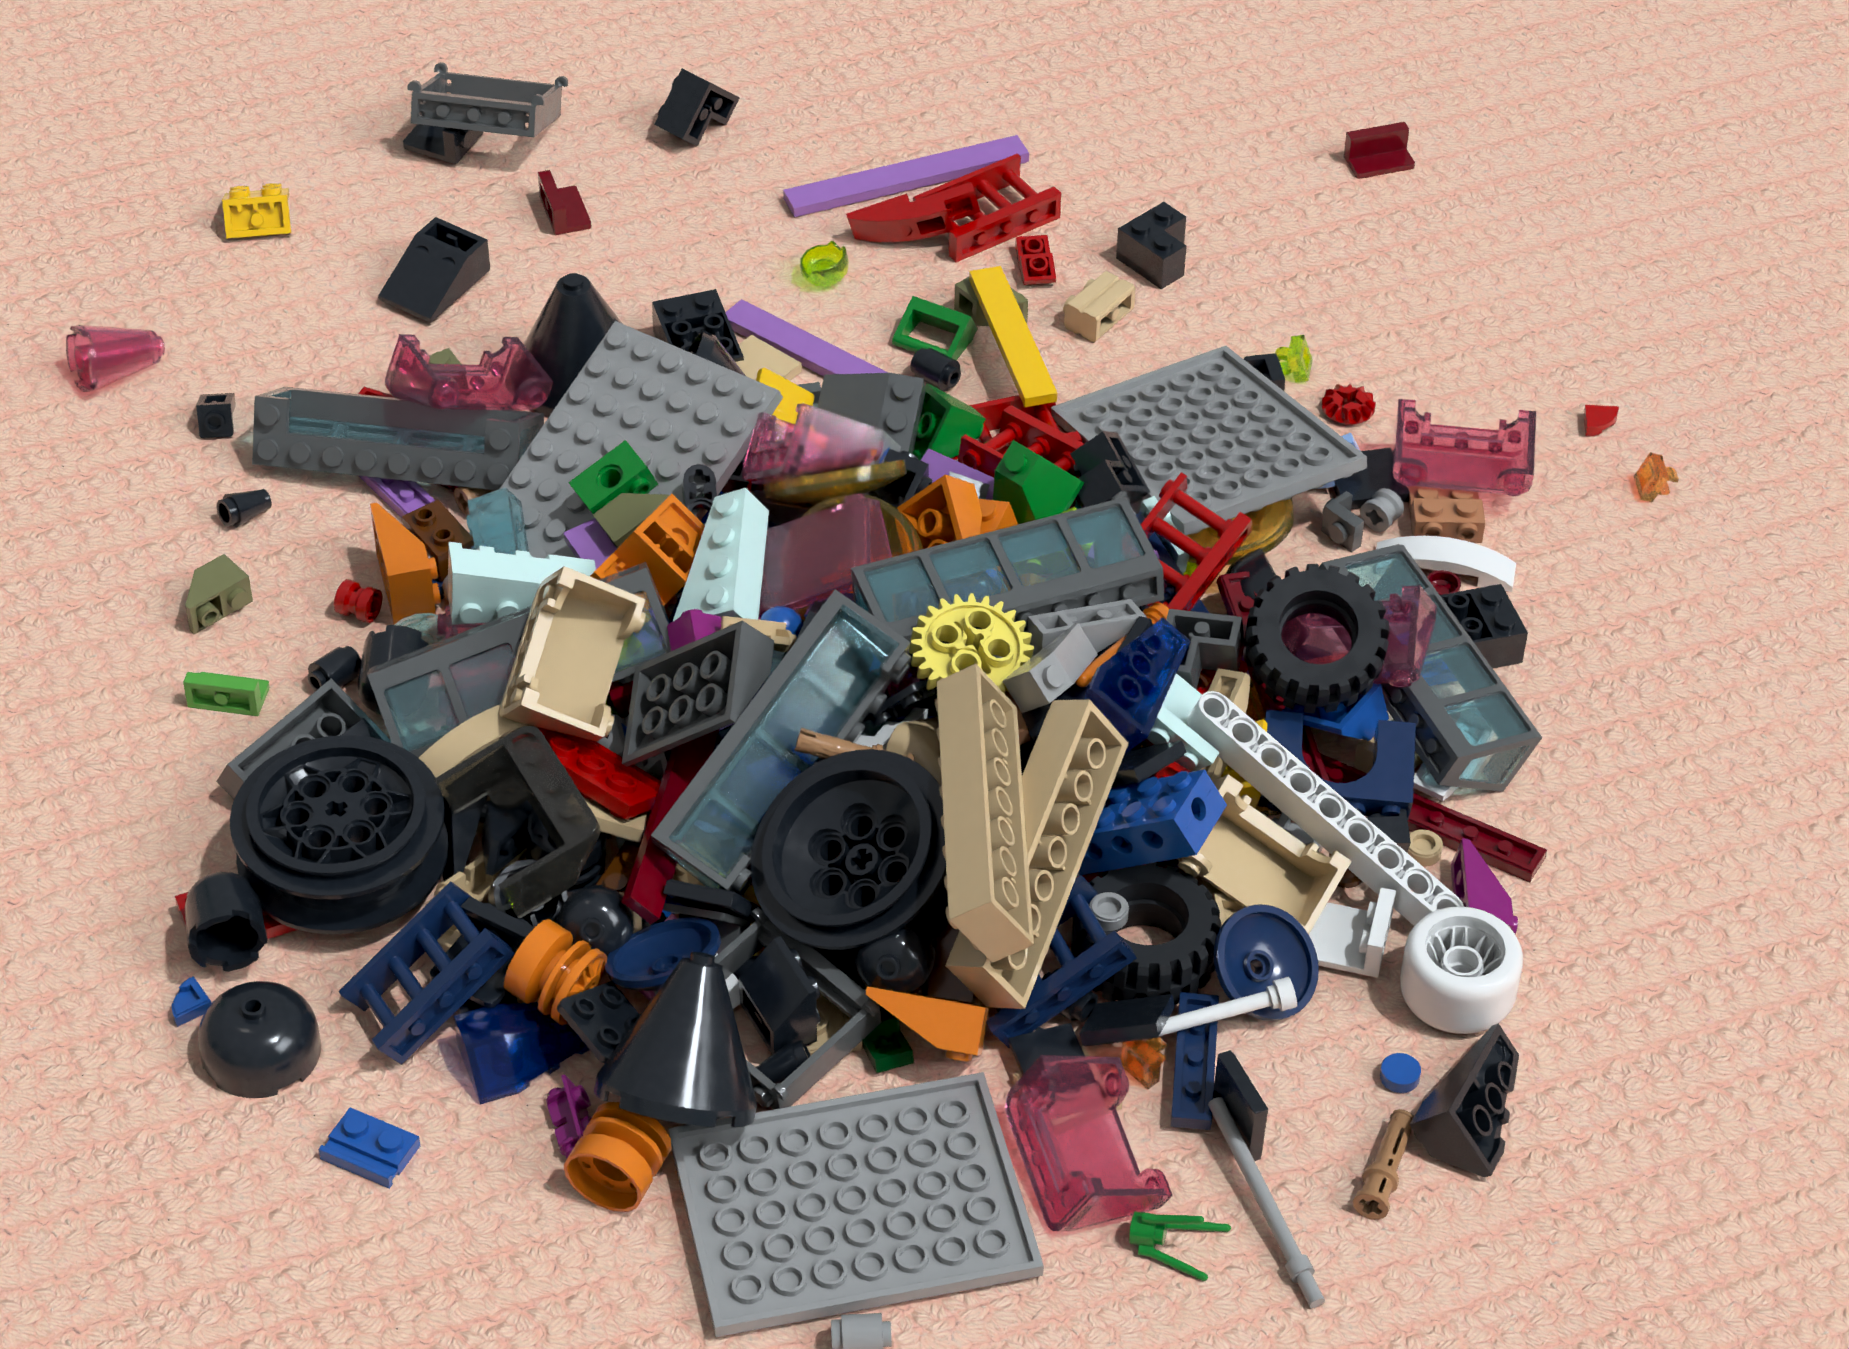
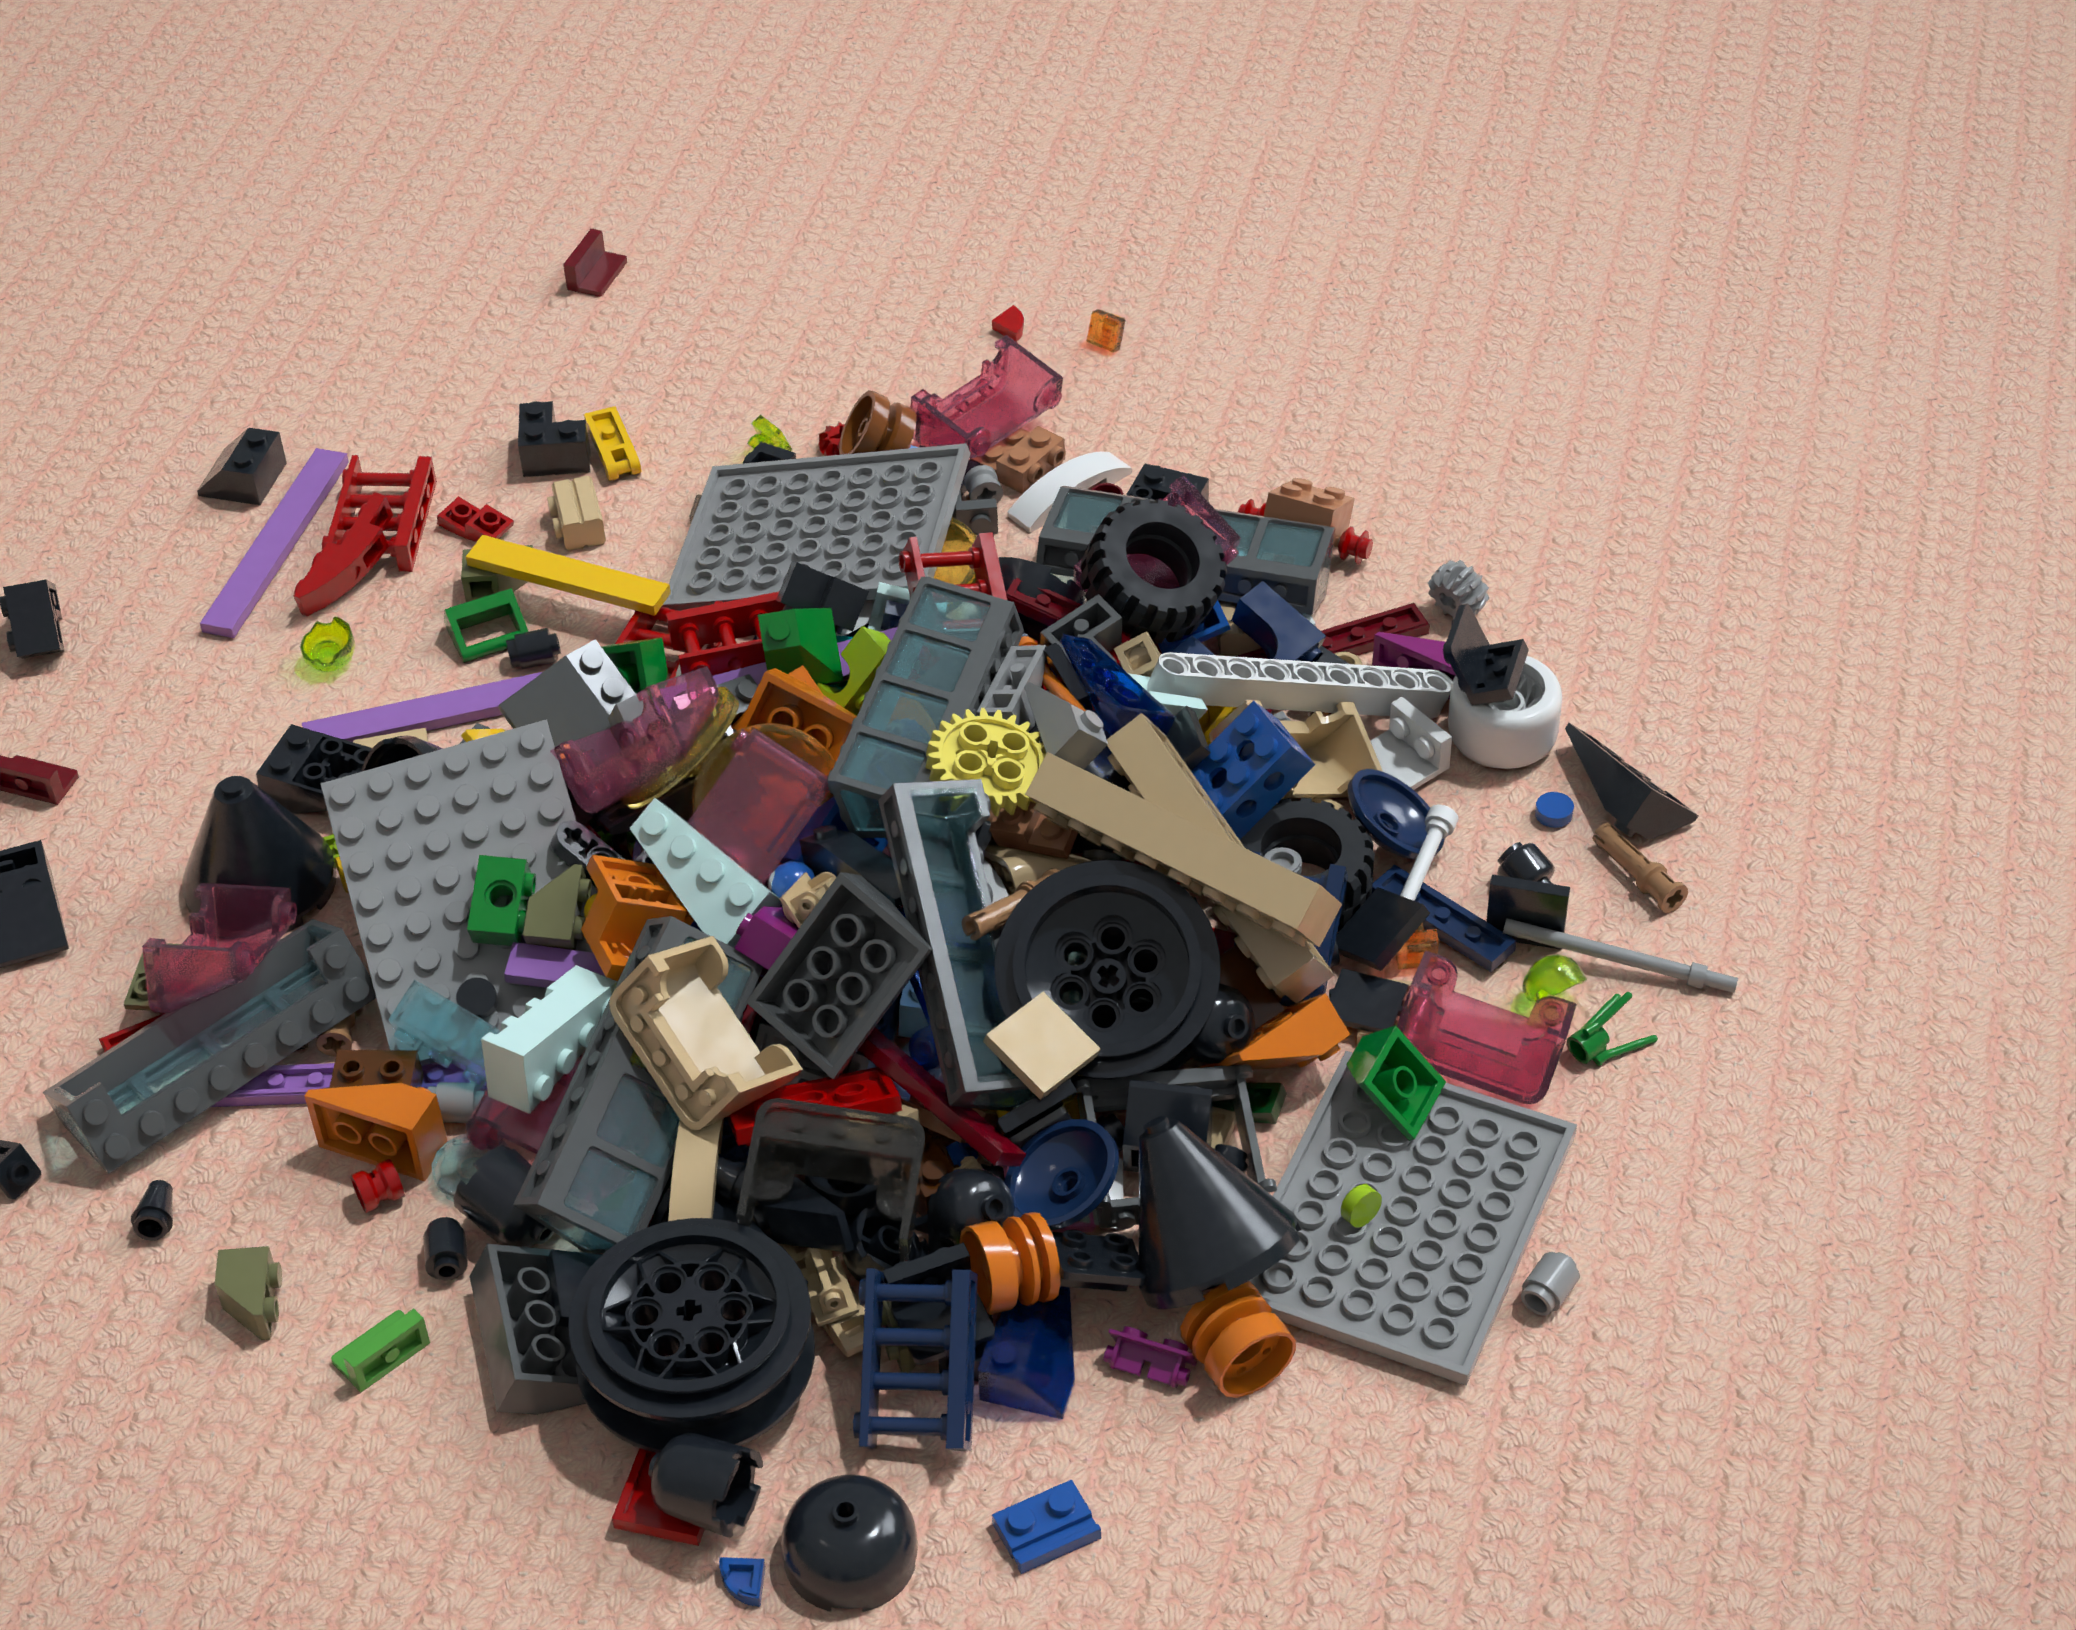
camera: 50 degrees left, 0 degrees up
(541, 537) = (477, 997): none -> black tile
(739, 854) = (1041, 1045): none -> tan tile
(816, 1162) = (1361, 1205): none -> lime tile
(957, 115) = (246, 468): none -> black slope
(960, 1115) = (1396, 1078): none -> green slope
(1188, 1162) = (1551, 976): none -> clear neon green hair
(1196, 279) = (612, 442): none -> yellow plate
(1300, 1086) = (1526, 863): none -> black head
(1351, 406) = (877, 426): none -> dark orange wheel
(1453, 901) = (1483, 669): none -> black bracket
(1567, 721) = (1308, 504): none -> nougat brick
(1581, 866) = (1457, 585): none -> light grey gear

